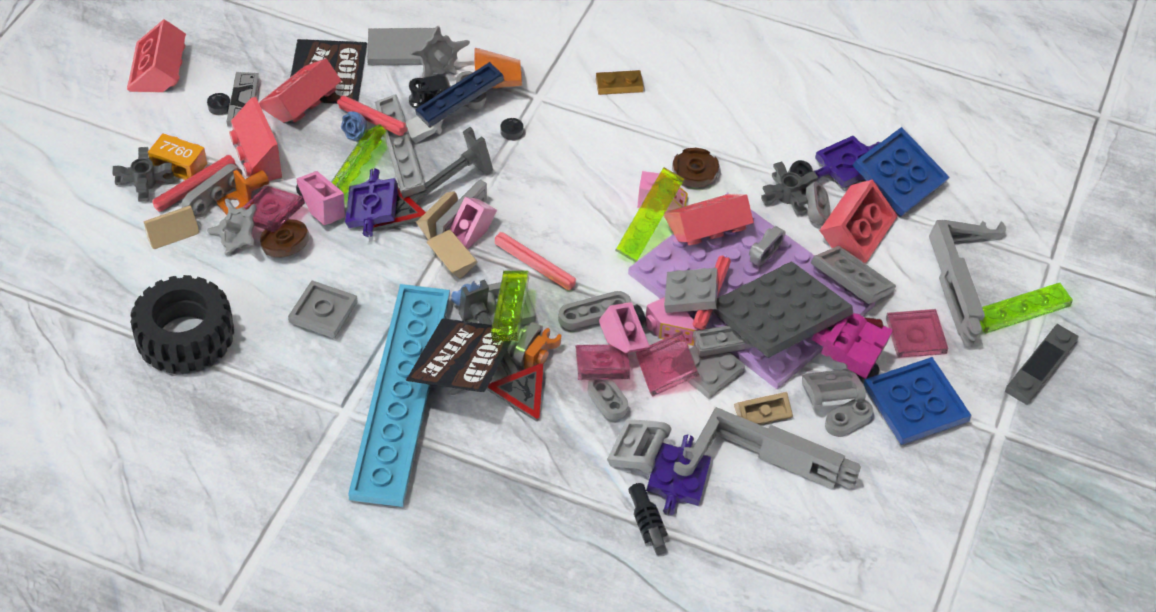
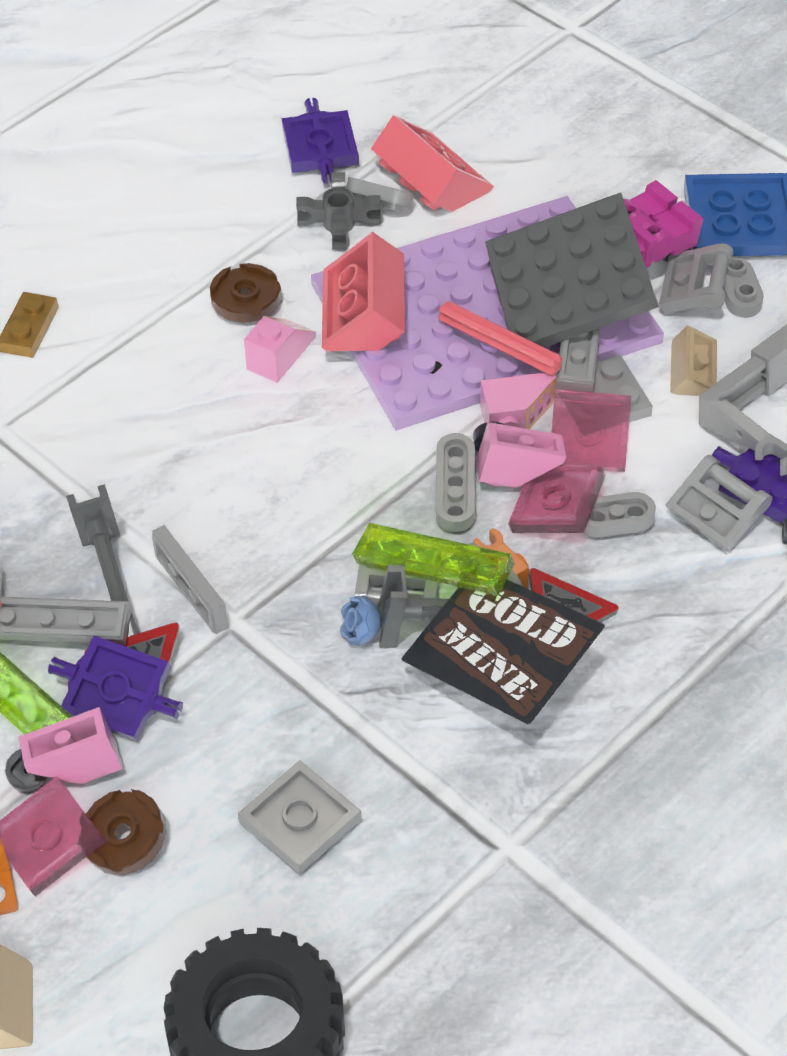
camera: 65 degrees left, 0 degrees up
(236, 227) = (73, 892): light grey piece -> none
(397, 404) = (515, 759): medium azure plate -> none
(428, 221) = (183, 607): tan slope -> none
(452, 253) = (268, 614): tan slope -> none
(472, 220) = (225, 571): bright pink slope -> none
(511, 128) = (47, 474): black tile -> none
(535, 261) = (326, 524): coral axle -> none
(649, 214) = (327, 358): clear neon green plate -> none
(691, 290) = (496, 352): light grey plate -> none
(770, 242) = (445, 256): light grey plate -> none
(800, 167) = (311, 187): black tile -> none
(853, 274) = (520, 199): light grey tile -> none
(901, 171) = (370, 93): blue plate -> none
(917, 333) = (629, 173): clear pink tile -> none
(955, 274) = (573, 109): light grey hinge -> none
(1025, 307) = (632, 78): clear neon green plate -> none
(1041, 364) = (724, 92): dark grey plate -> none

